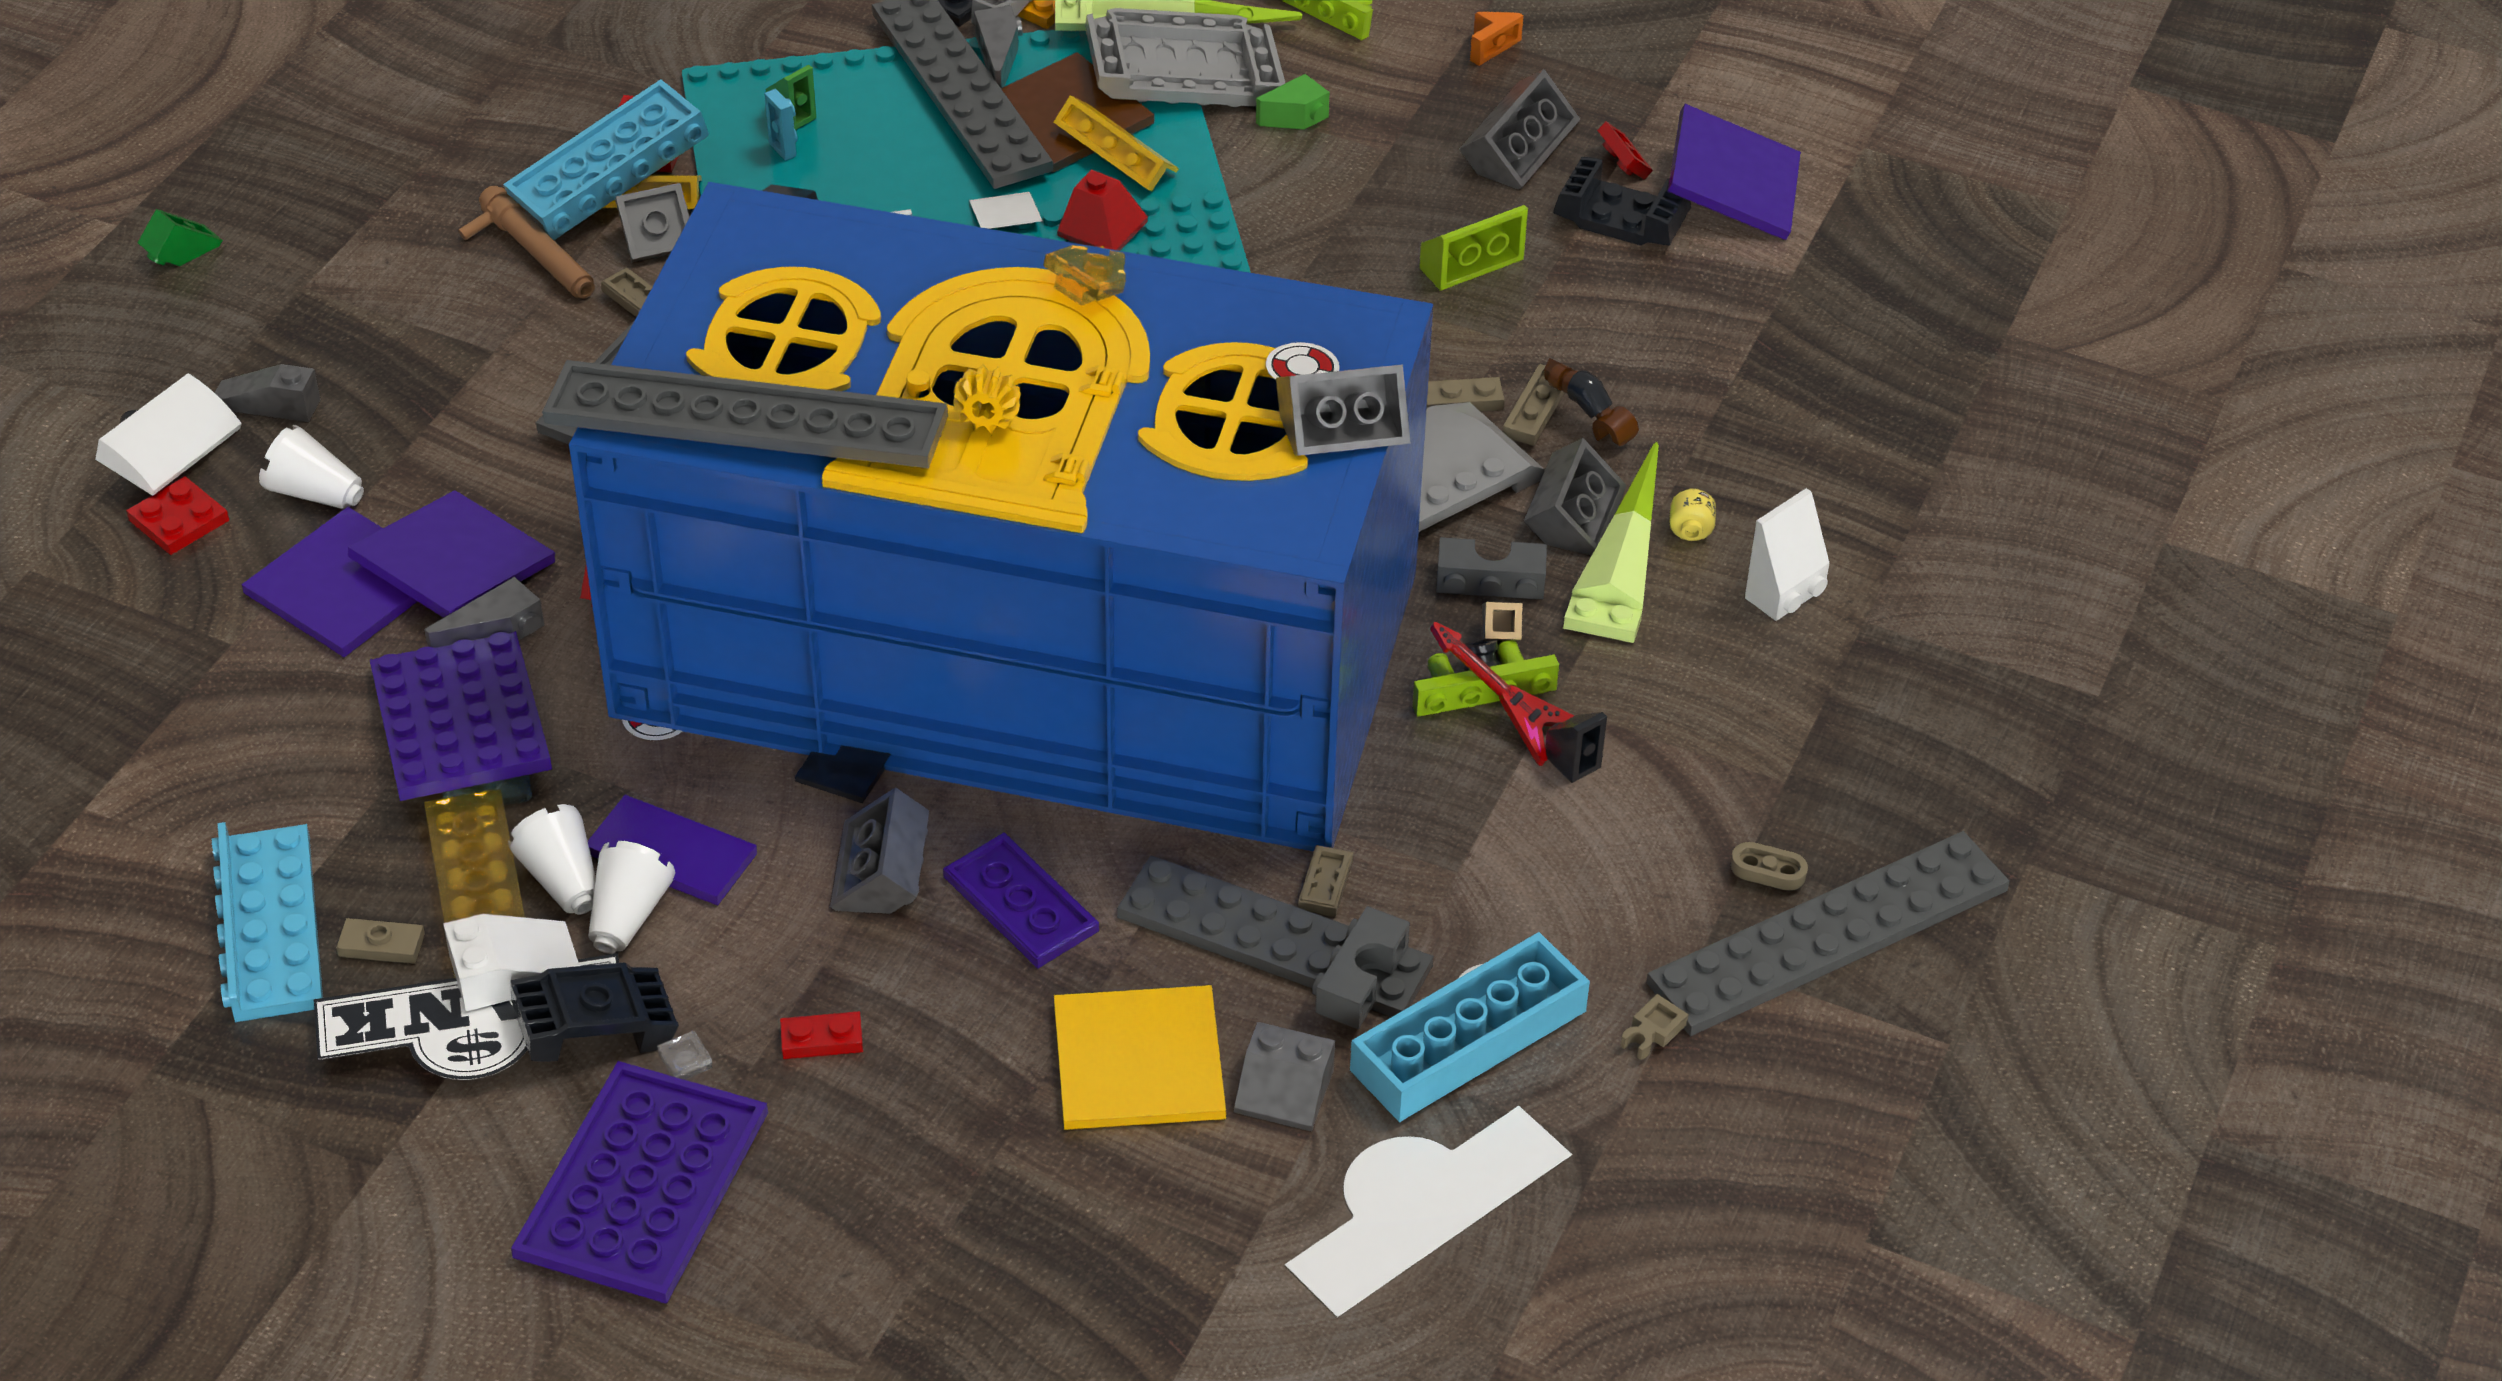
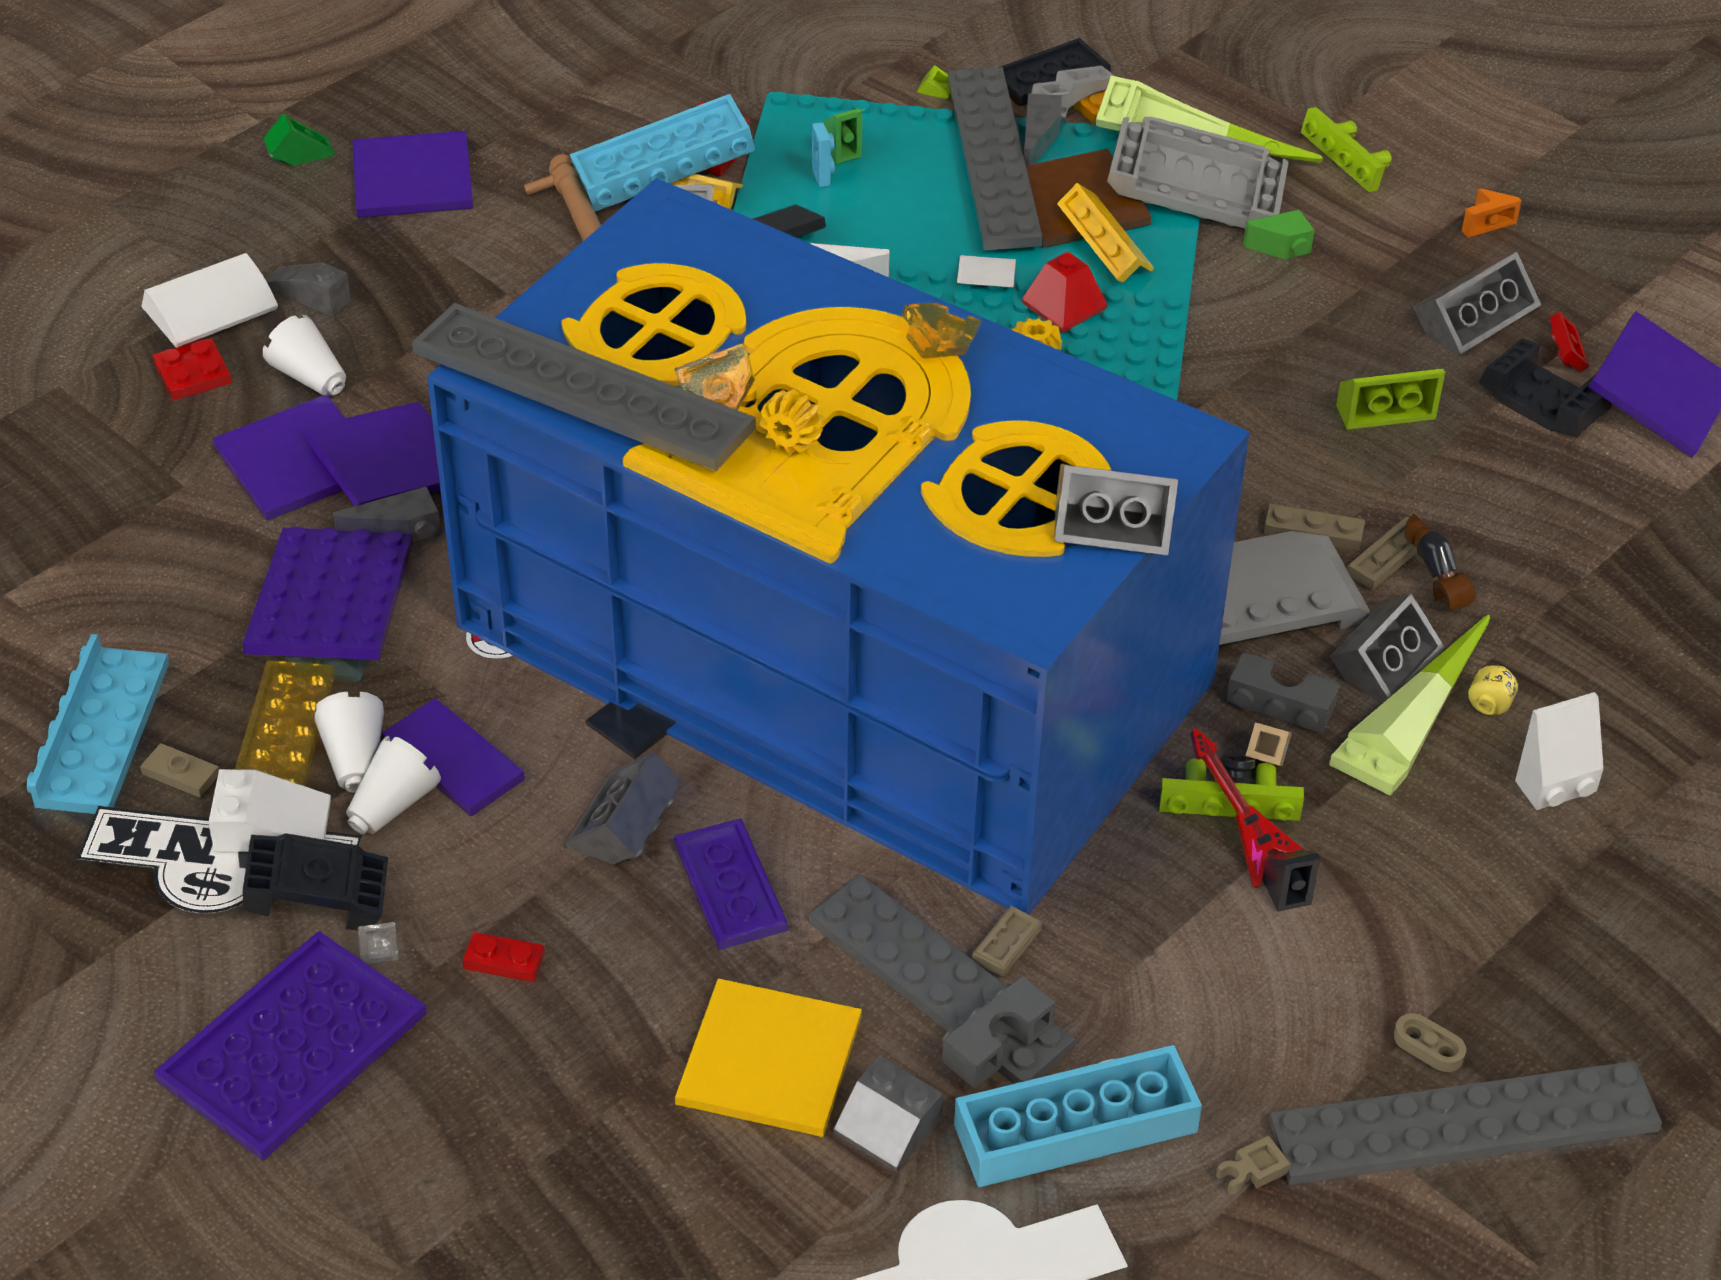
camera: 20 degrees right, 0 degrees up
(324, 245) = (412, 174): none -> dark purple tile
(859, 21) = (935, 83): none -> lime slope
(889, 371) = (719, 377): none -> clear yellow plate
(1300, 359) = (1099, 454): sticker -> none

